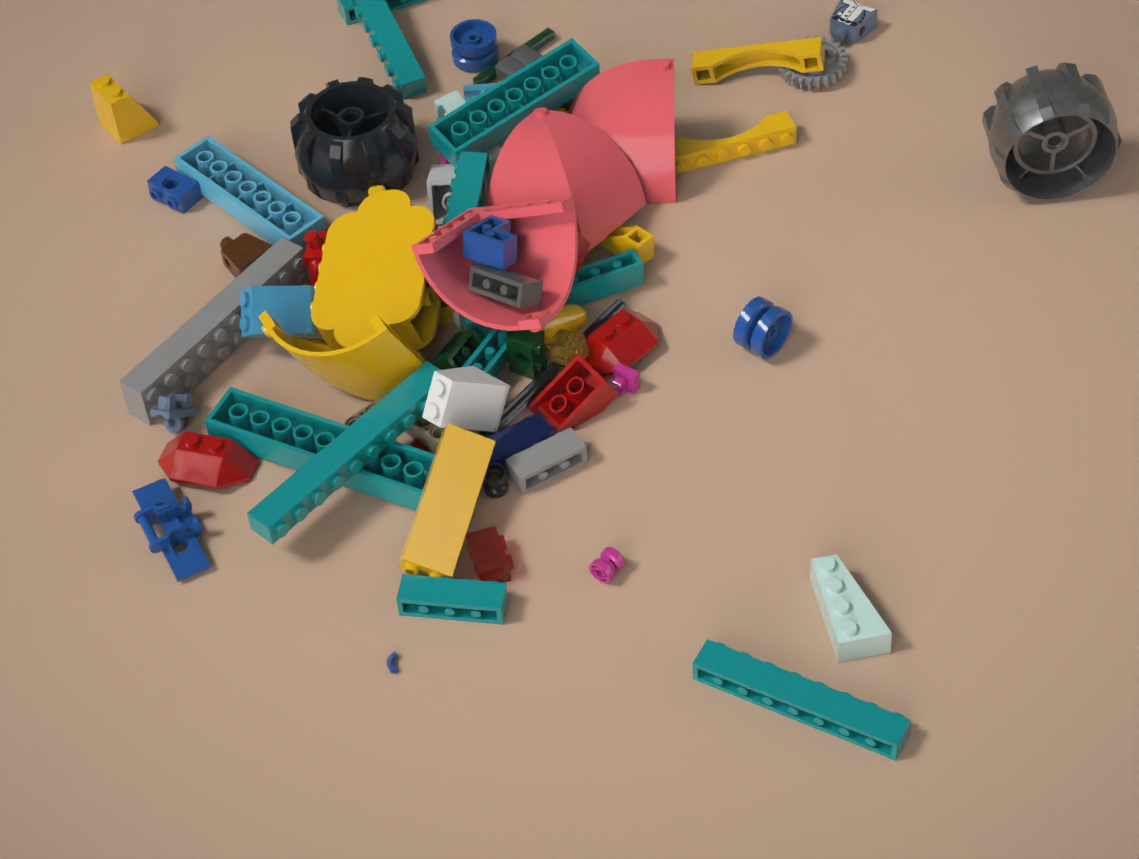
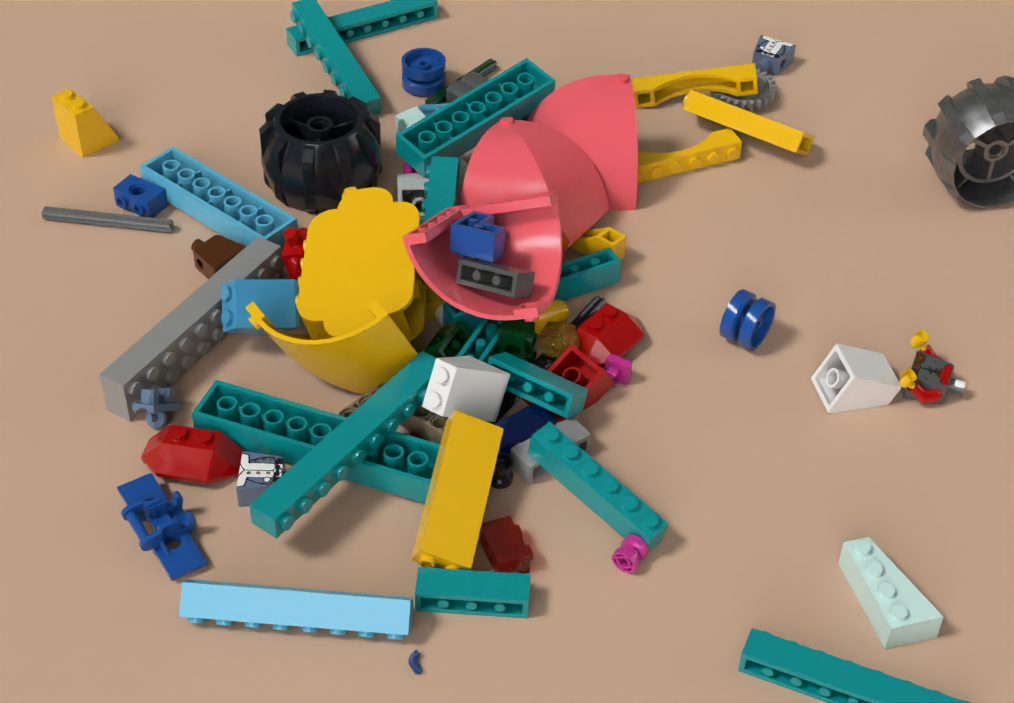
camera: 10 degrees left, 5 degrees down
(141, 213) = (108, 219): none -> dark grey axle
(261, 480) = (256, 475): none -> torso
(288, 609) = (296, 607): none -> medium azure brick
(541, 395) = (541, 385): none -> teal brick
(581, 499) = (595, 486): none -> teal brick
(808, 104) = (748, 122): none -> yellow brick
(862, 392) = (854, 379): none -> white slope
(939, 389) = (930, 375): none -> torso

